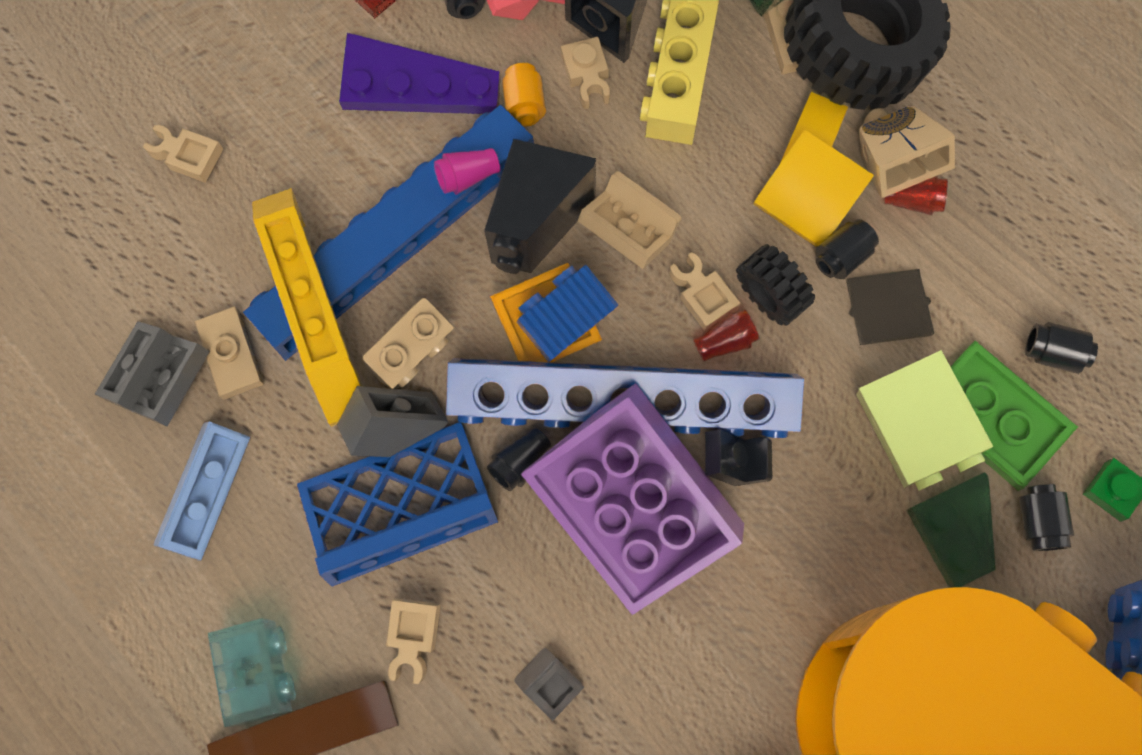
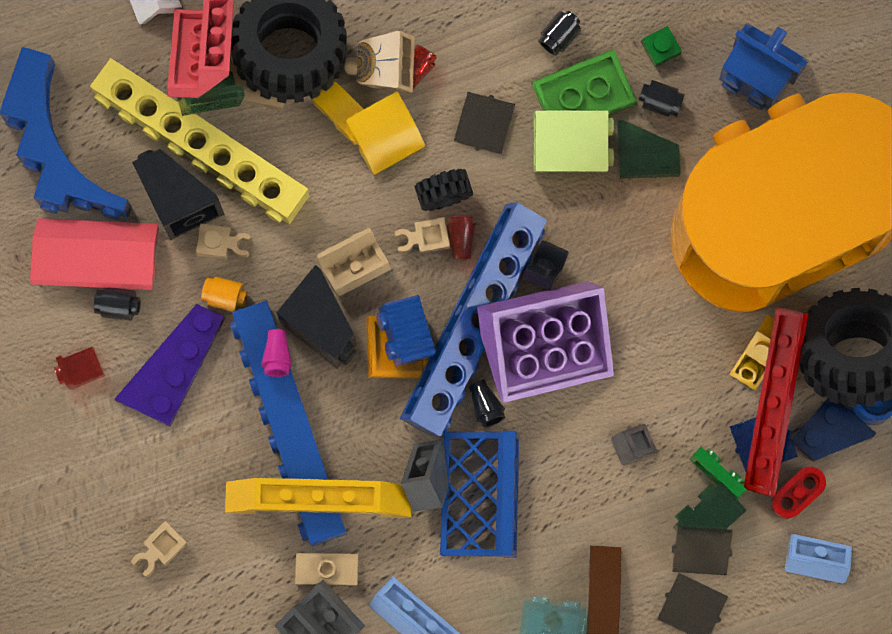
camera: 70 degrees left, 5 degrees up
(406, 343) = (383, 442): tan bracket -> none
(412, 630) = (568, 514): tan plate -> none
(846, 249) = (436, 132): black brick -> none

